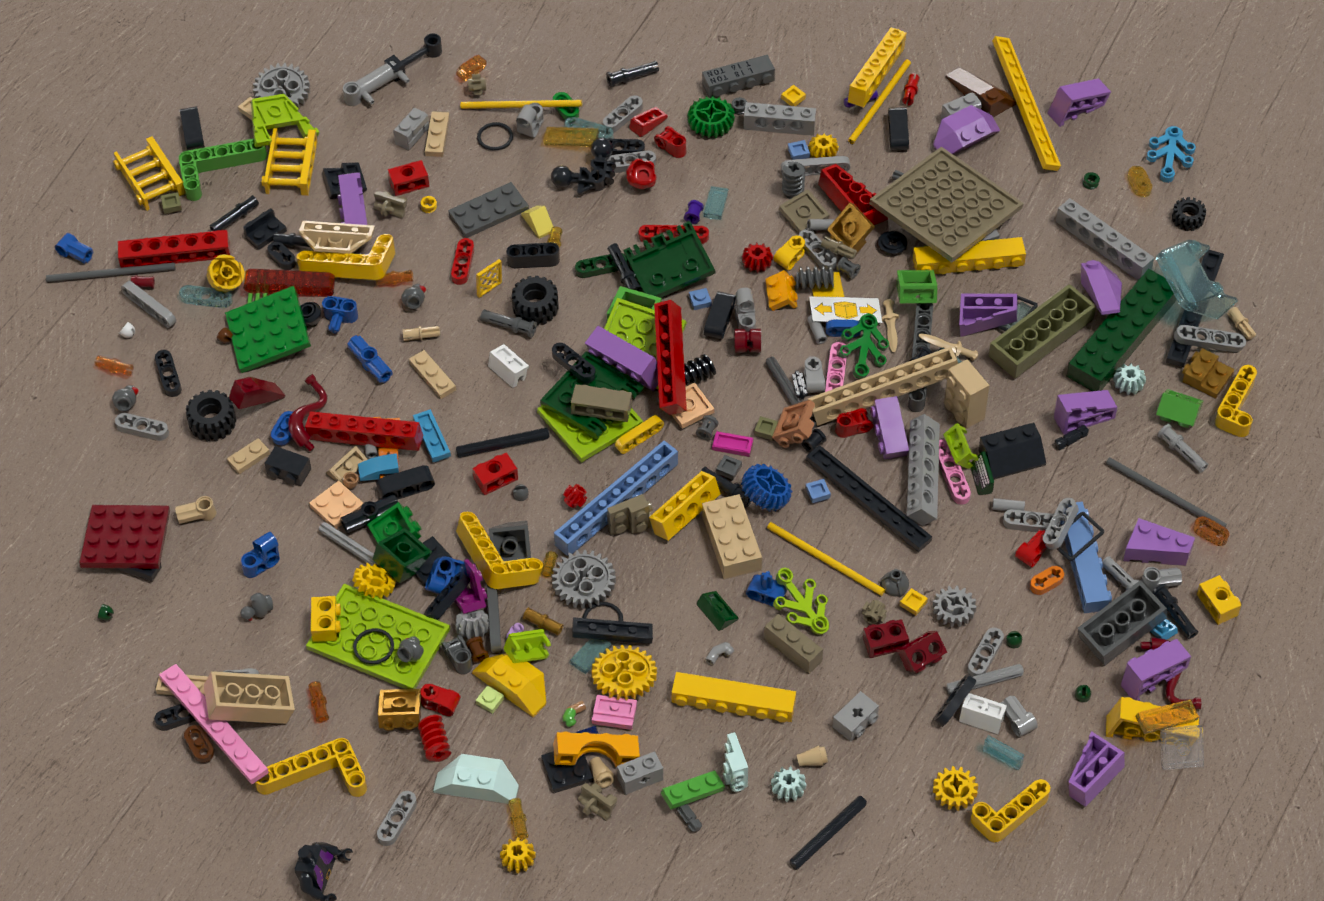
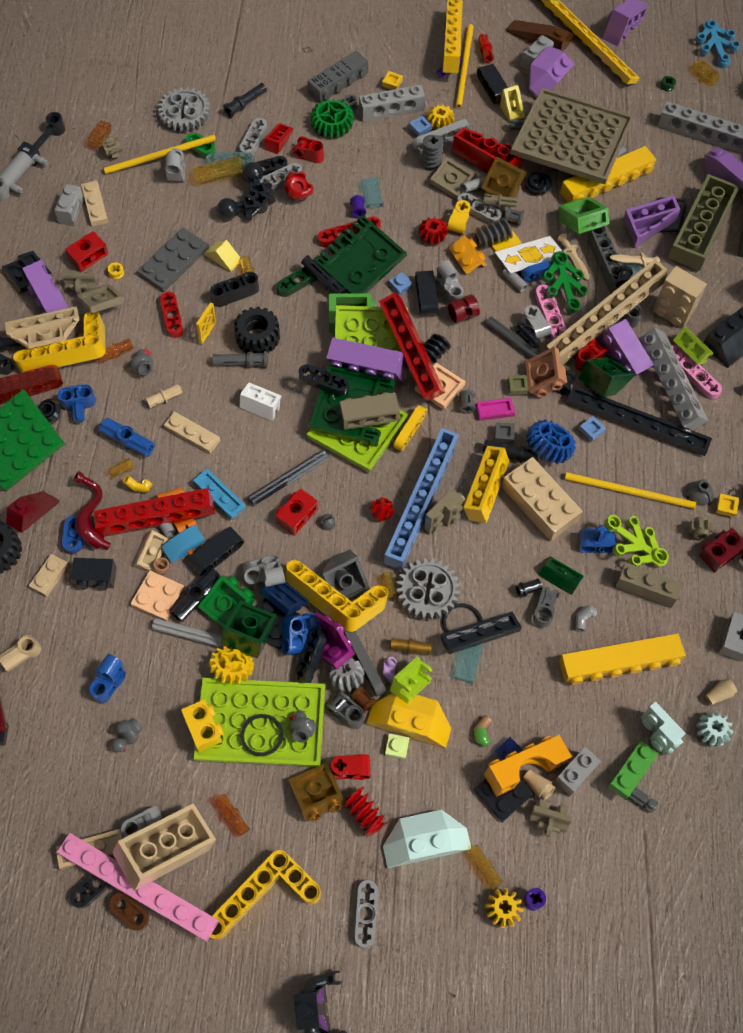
camera: 25 degrees left, 10 degrees up
(354, 384) = (121, 467): none -> clear yellow pin
(359, 405) = (137, 487): none -> yellow arm
(400, 225) = (100, 298): none -> dark tan plate
(443, 513) = (268, 571): none -> light grey piece
(447, 540) = (284, 597): none -> dark blue plate
(494, 124) = (145, 201): black piece -> none
(548, 858) = (528, 900): none -> dark purple bush
(566, 66) = (173, 107): none -> light grey gear
(614, 712) = (521, 715): bright pink plate -> none
(624, 672) = (530, 676): yellow gear -> none
(679, 609) = (529, 587): none -> black pin
(688, 629) = (546, 605): none -> dark grey piece
(854, 445) = (605, 376): none -> dark green slope
(906, 153) = (511, 103): none -> light yellow slope
(982, 475) = (722, 366): slope -> none

